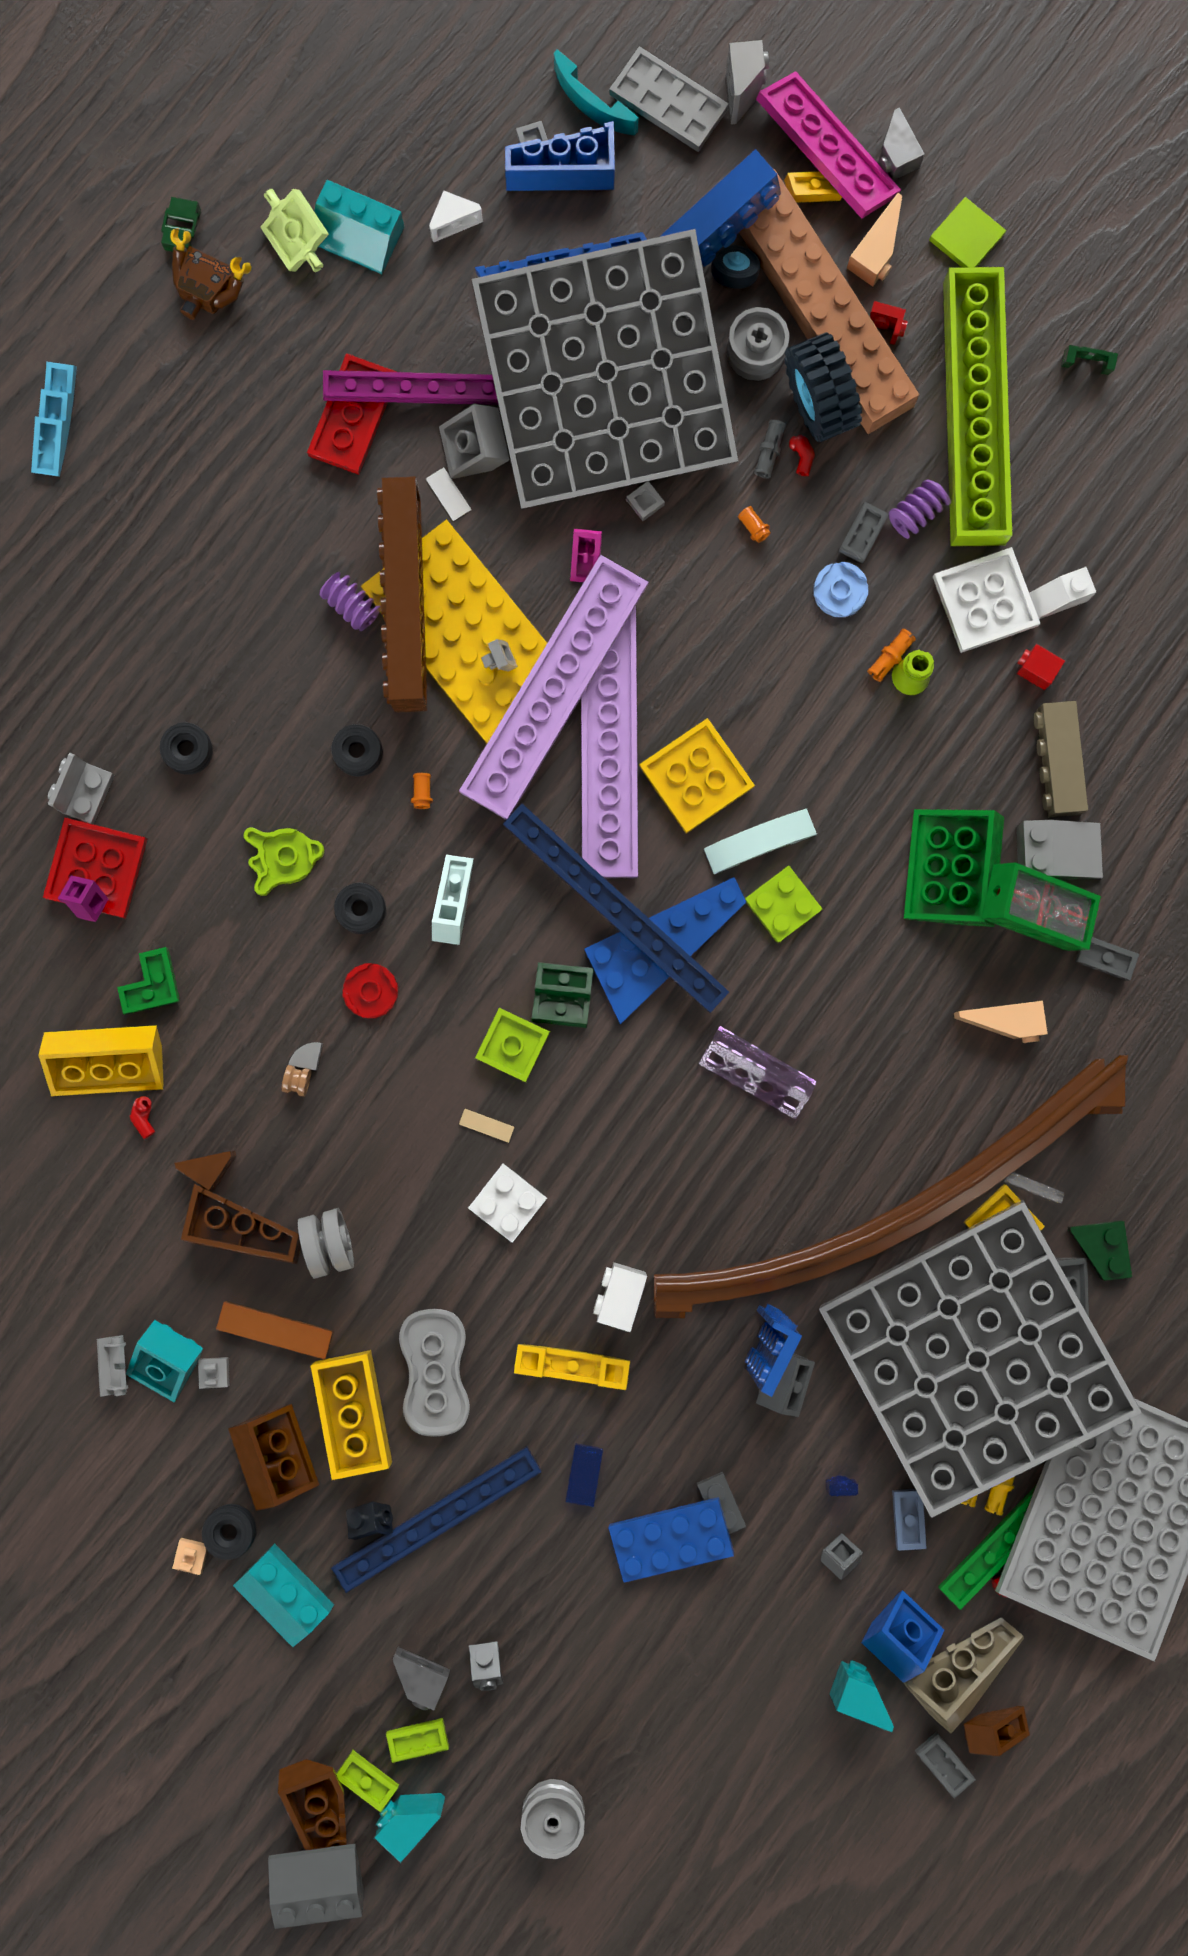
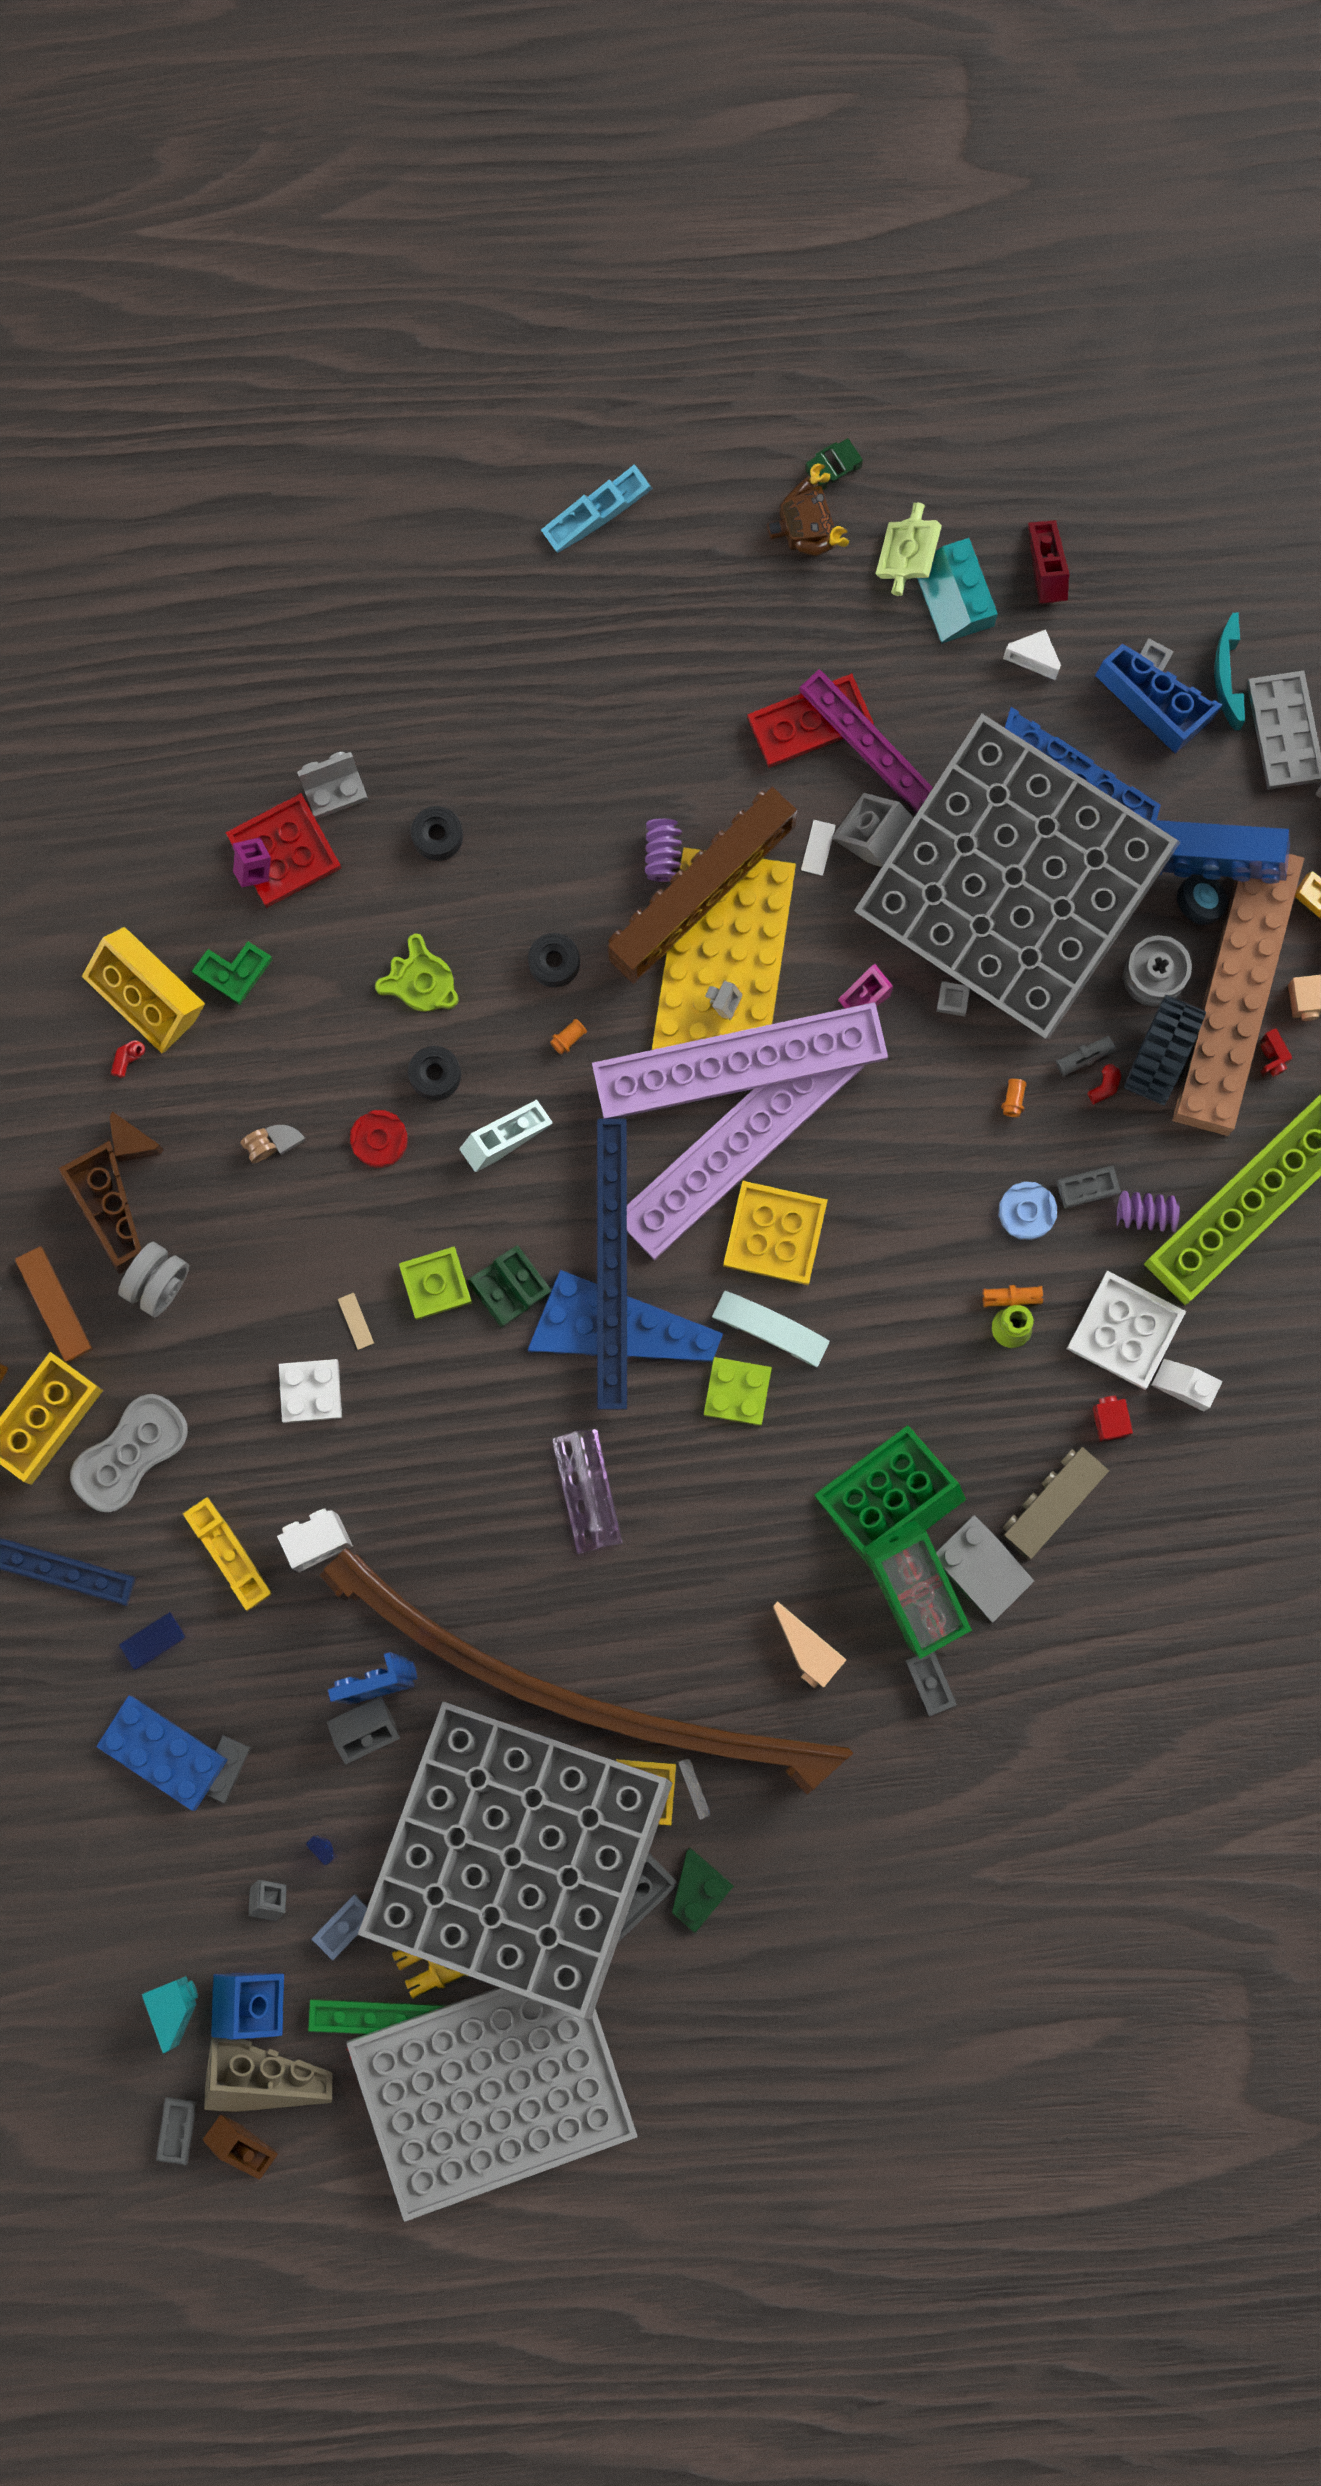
camera: 50 degrees right, 5 degrees down
(395, 144) = (1048, 562): none -> dark red slope

